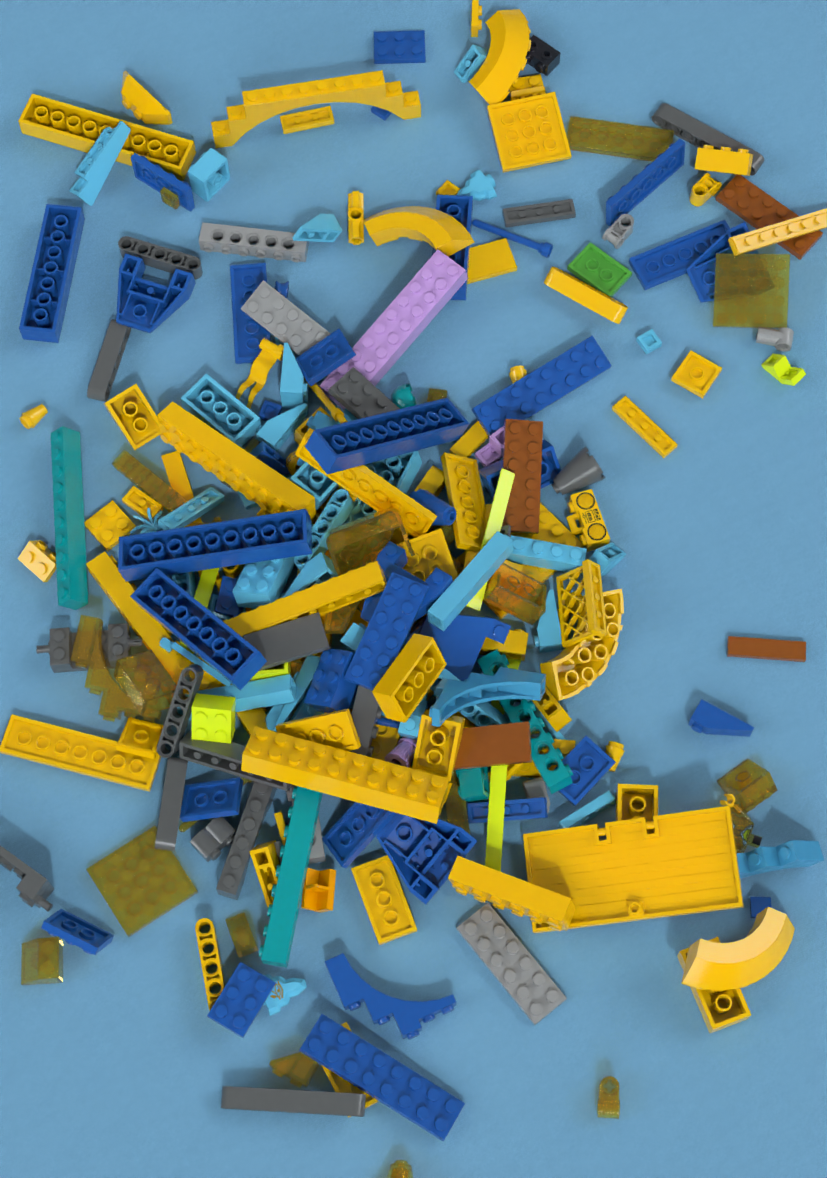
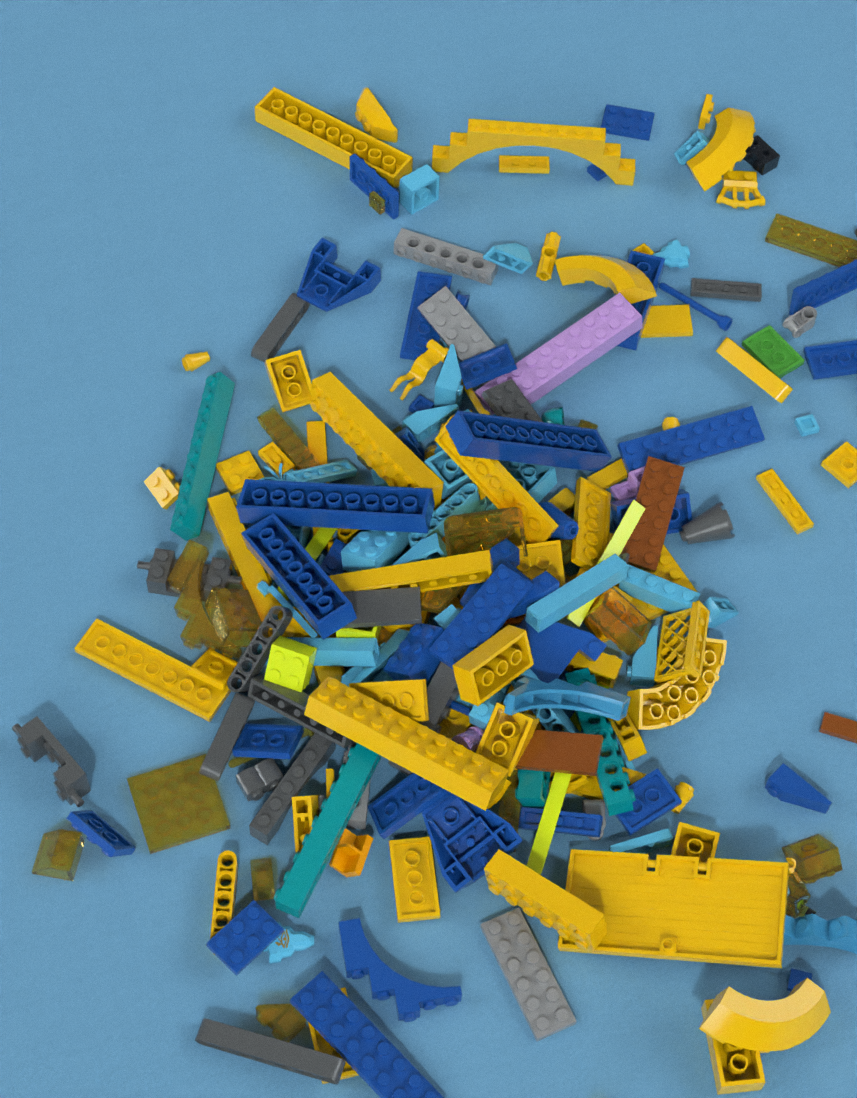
camera: 10 degrees right, 10 degrees down
(52, 273) = (248, 242): blue brick -> none
(99, 162) = (319, 157): medium azure wedge -> none
(154, 251) = (354, 250): dark grey beam -> none
(221, 410) = (375, 392): medium azure brick -> none
(529, 132) = (733, 217): yellow plate -> none
(592, 525) = (709, 566): yellow piece -> none

